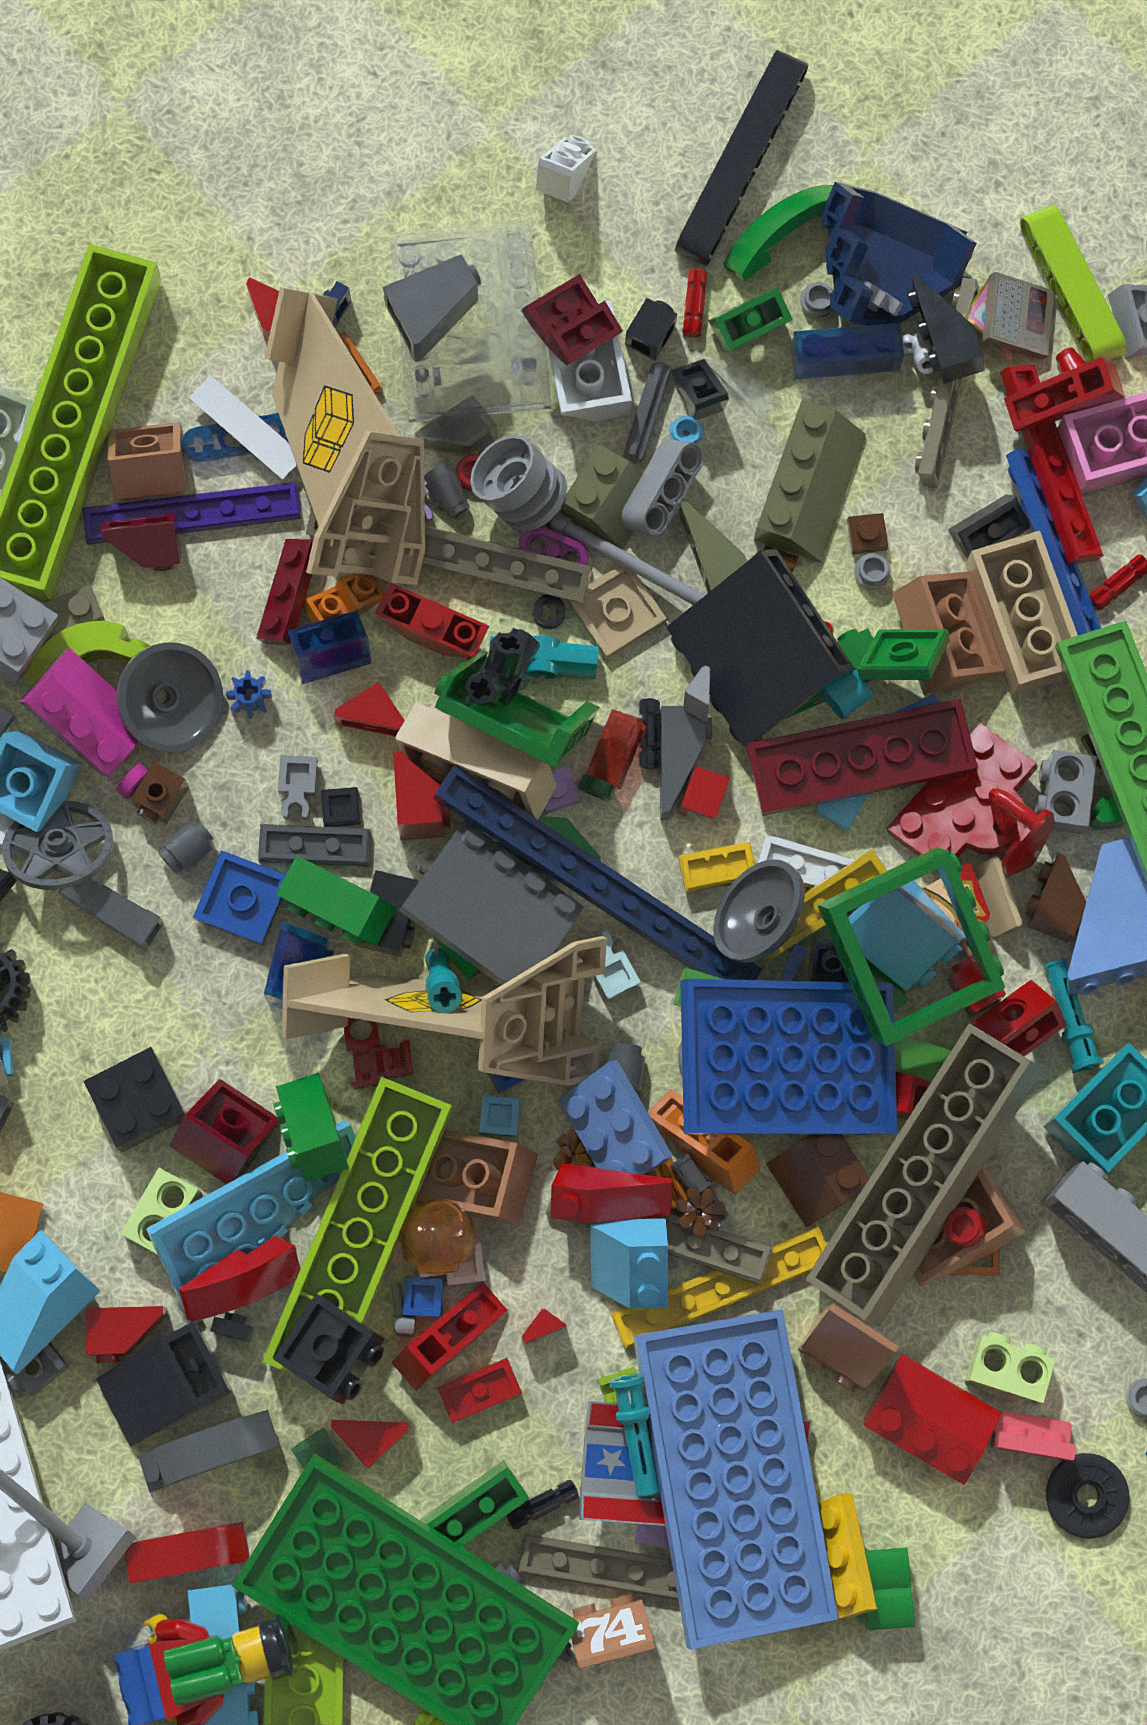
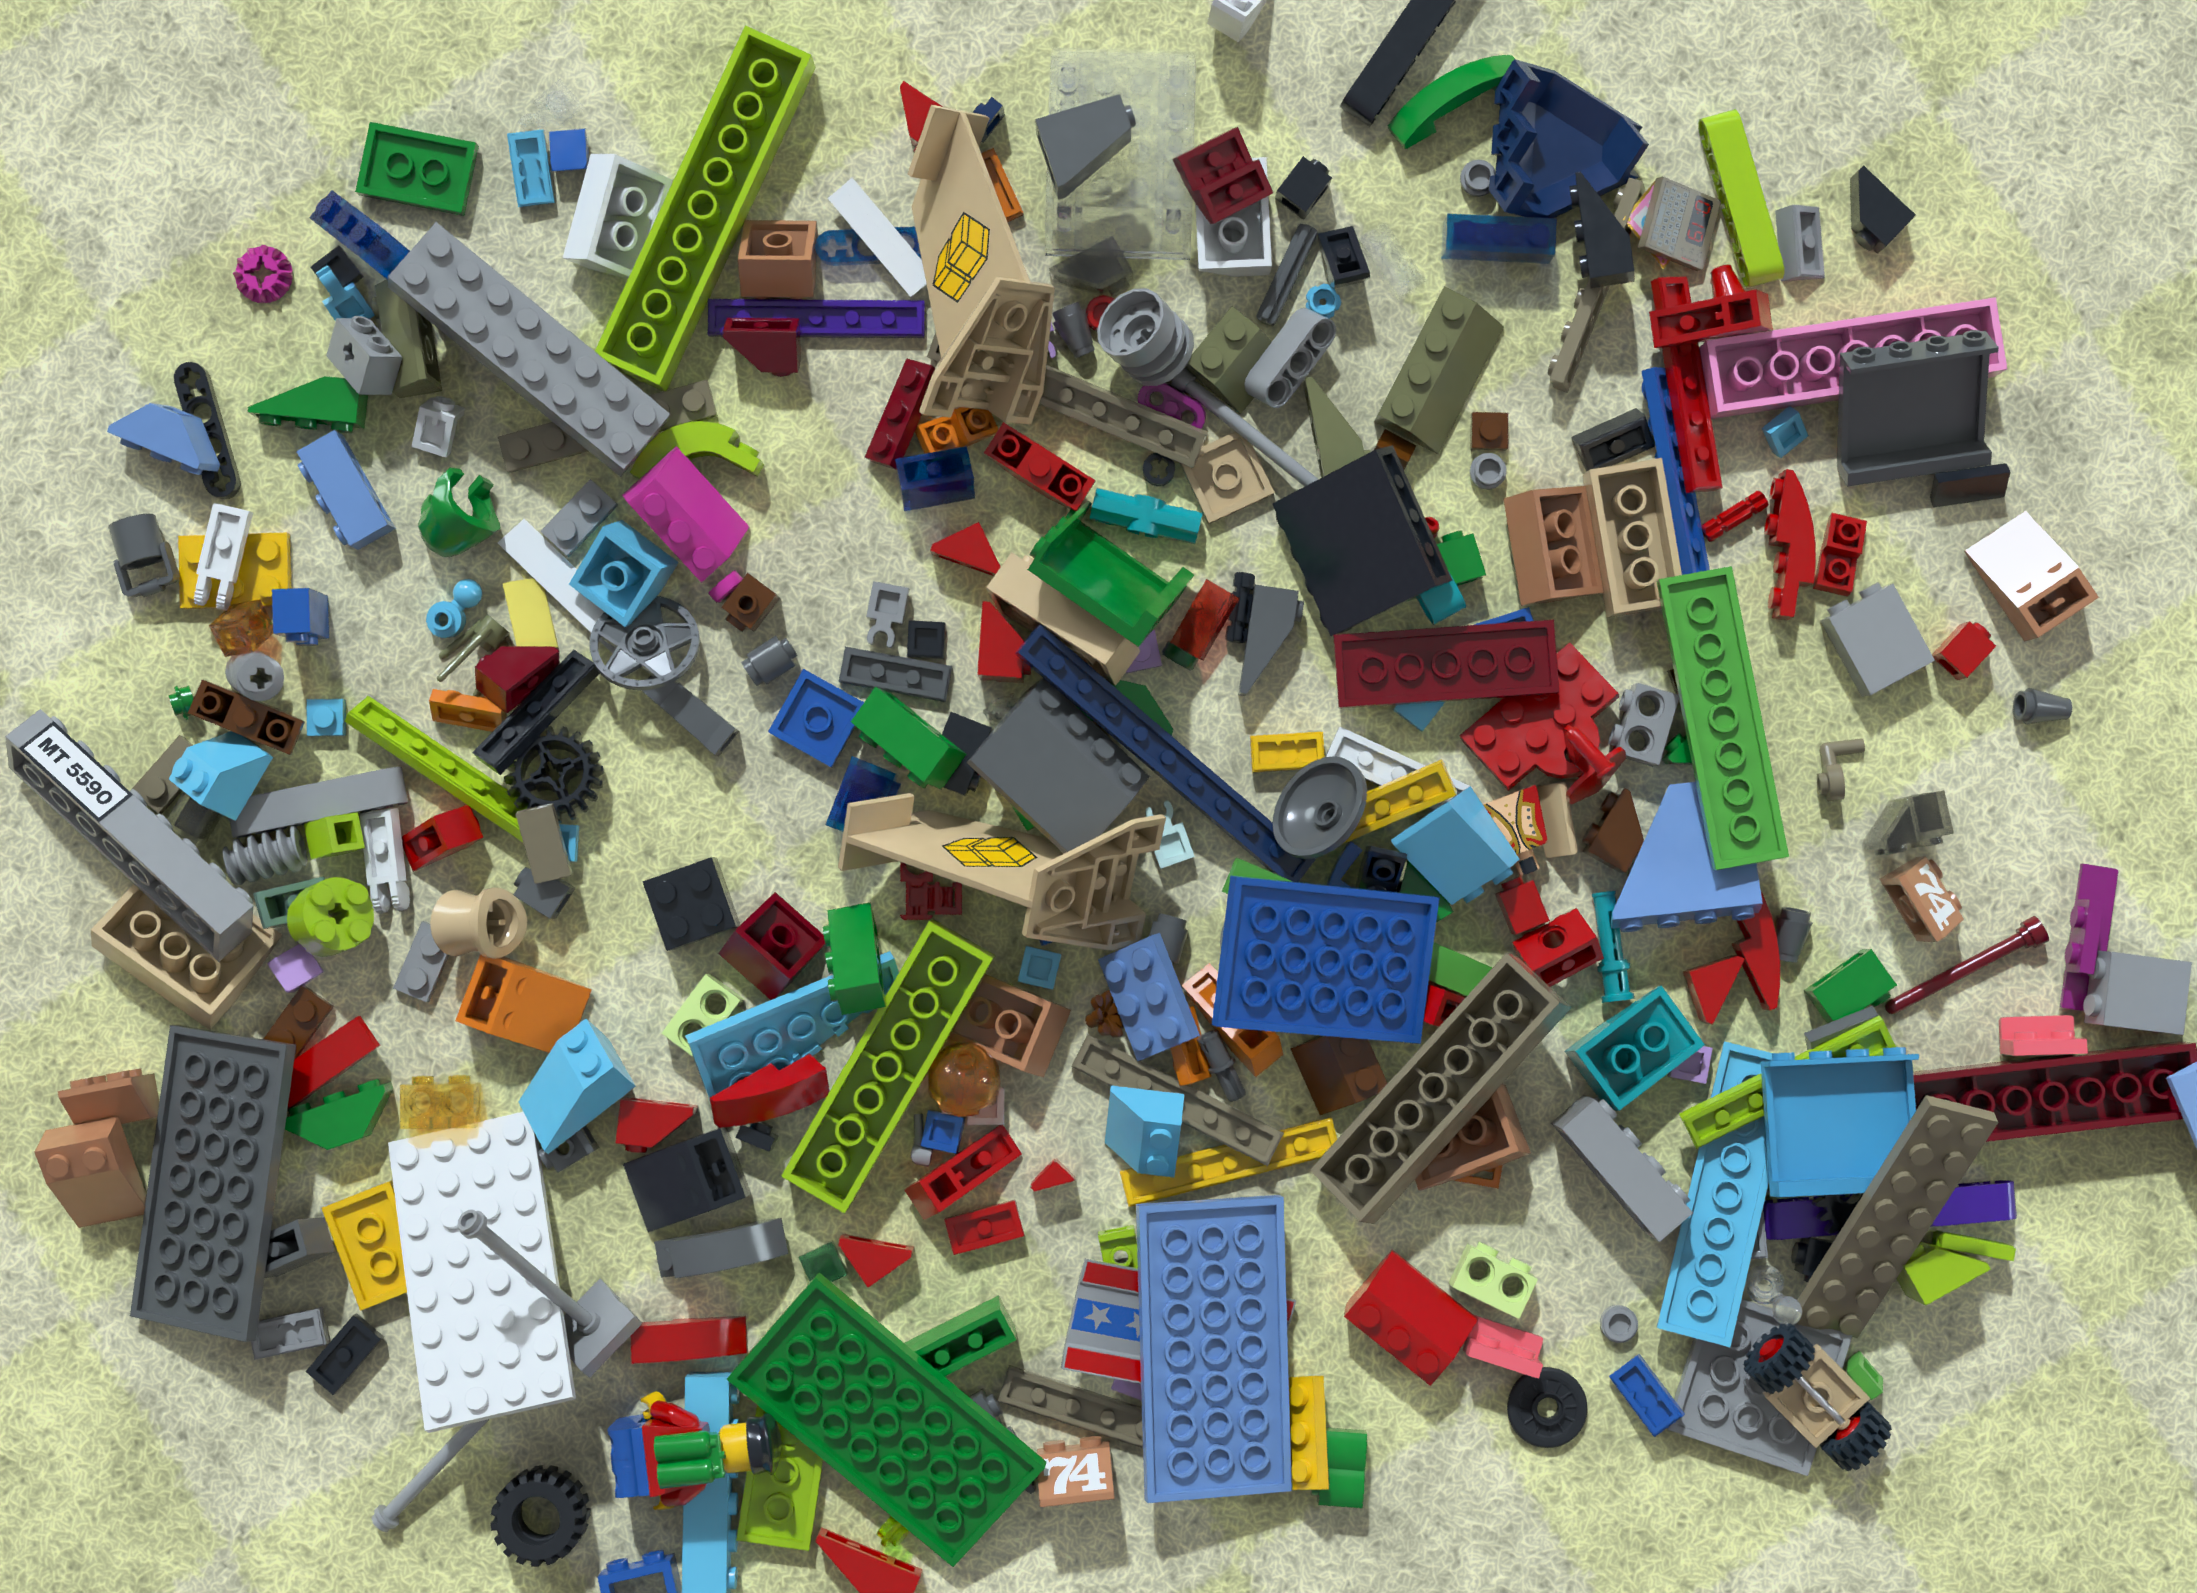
camera: 15 degrees right, 10 degrees up
(191, 700) = (787, 523): dark grey dish -> none
(257, 698) = (856, 522): blue gear -> none
(330, 1350) = (846, 1177): black plate -> none
(442, 983) = (999, 838): teal pin -> none
(504, 670) = (1102, 534): black piece -> none
(543, 1504) = (1032, 1341): black axle -> none
(608, 1195) = (1131, 1064): red slope -> none
(638, 1413) = (1120, 1280): teal pin -> none
(694, 303) = (1352, 164): red axle -> none
(697, 695) = (1292, 581): light grey slope -> none
(703, 1207) = (1225, 1089): reddish brown plant -> none
(704, 793) = (1285, 678): red panel -> none
(750, 319) = (1405, 193): green brick -> none
(846, 1348) = (1339, 1241): nougat slope -> none
(856, 967) = (1442, 808): green window -> none
(882, 299) = (1543, 189): light grey plate -> none
(904, 654) = (1503, 571): green tile -> none
(919, 352) = (1567, 239): white arm -> none
(965, 1227) = (1471, 1144): red tile -> none

